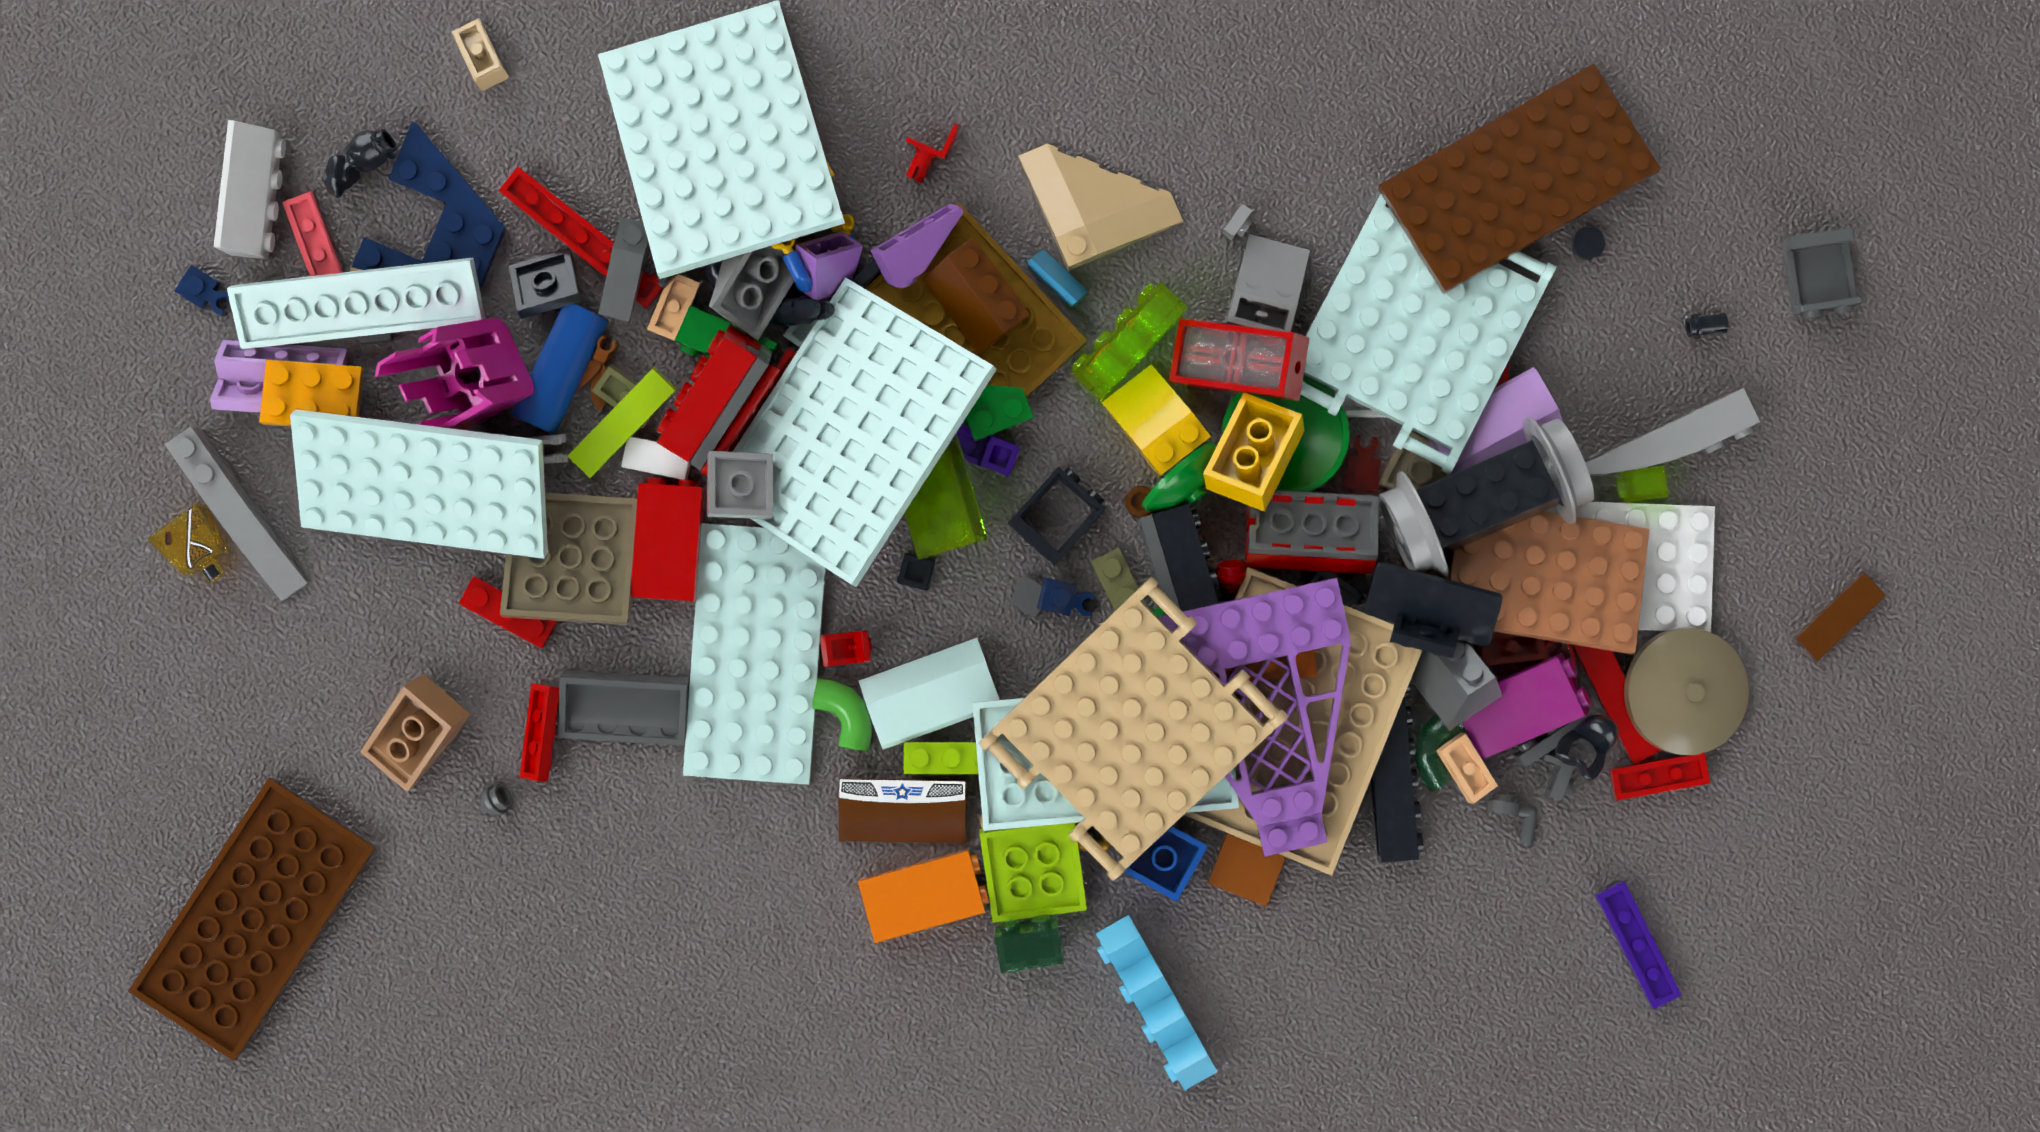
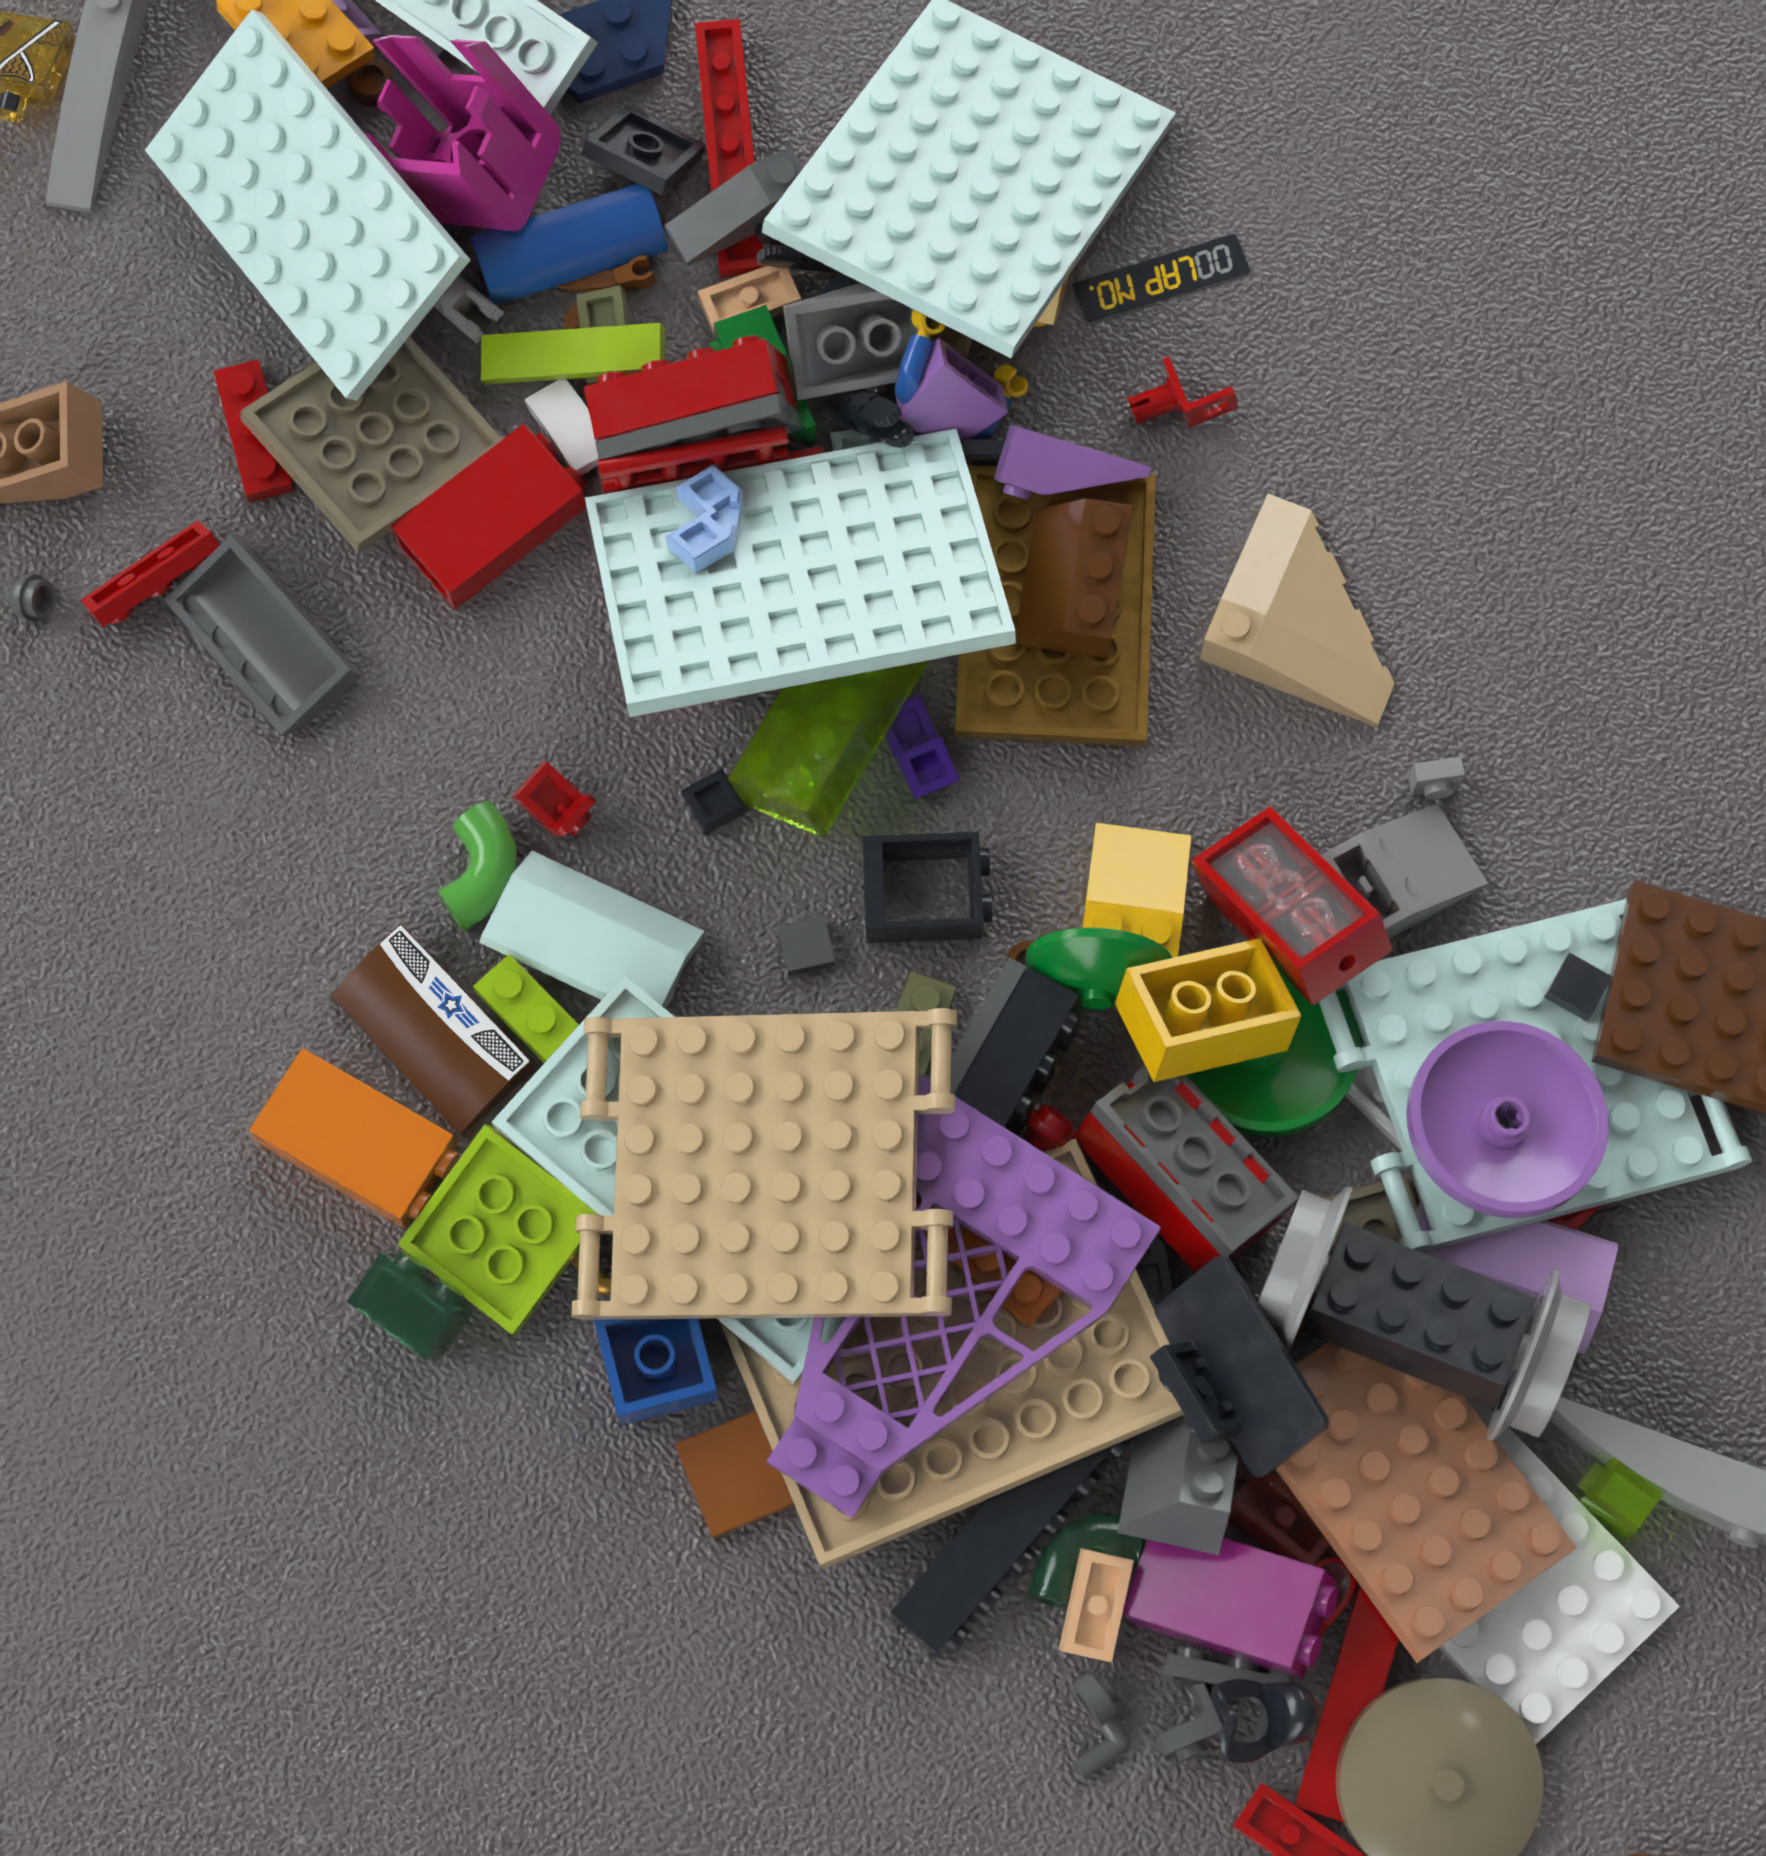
camera: 45 degrees right, 15 degrees down
(371, 384) = (368, 81): none -> reddish brown tile
(739, 485) = (622, 508): light grey plate -> none
(753, 658) = (448, 721): light aqua plate -> none
(792, 451) = (715, 529): none -> light blue tile
(856, 93) = (1161, 278): none -> black sticker
(998, 410) = (972, 709): green wing -> none
(1057, 278) = (1180, 651): dark azure slope -> none
(1061, 598) = (837, 974): dark blue plate -> none
(1128, 343) = (1186, 778): clear neon green brick -> none
(1156, 1002) = (473, 1532): medium azure brick -> none
(1362, 471) = (1315, 1168): clear red plate -> none
(1404, 264) = (1578, 987): none -> black tile
(1454, 343) = (1530, 1086): none -> medium lavender dish

